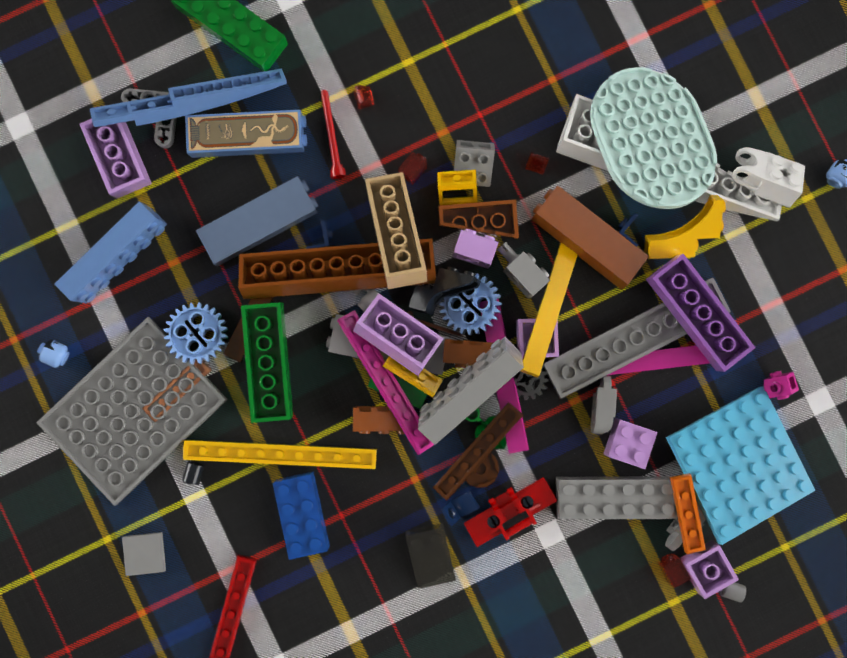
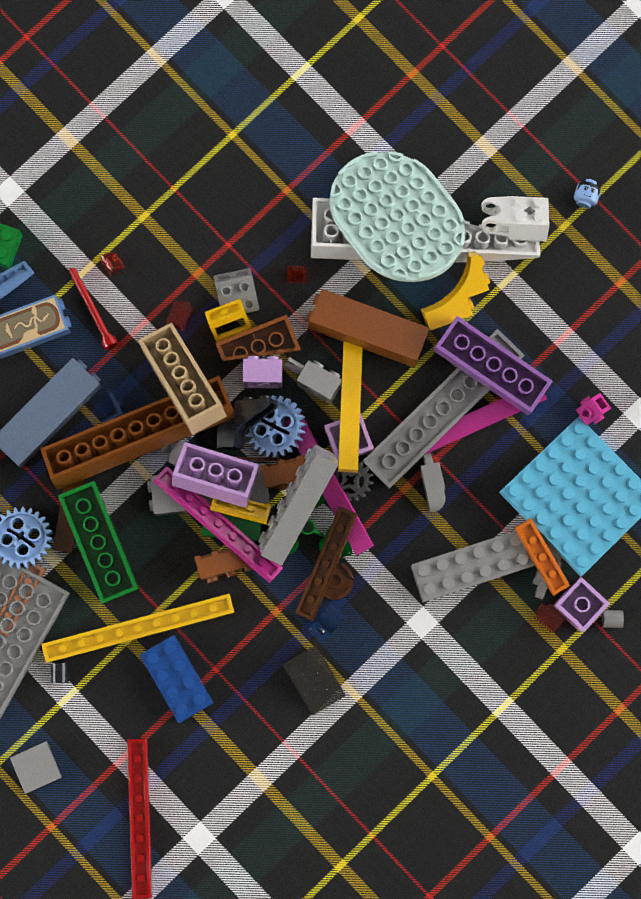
camera: 20 degrees left, 5 degrees down
(506, 506) = (370, 609): red piece -> none
(625, 224) = (398, 305): dark blue bracket -> none
(630, 443) = (469, 509): lavender brick -> none

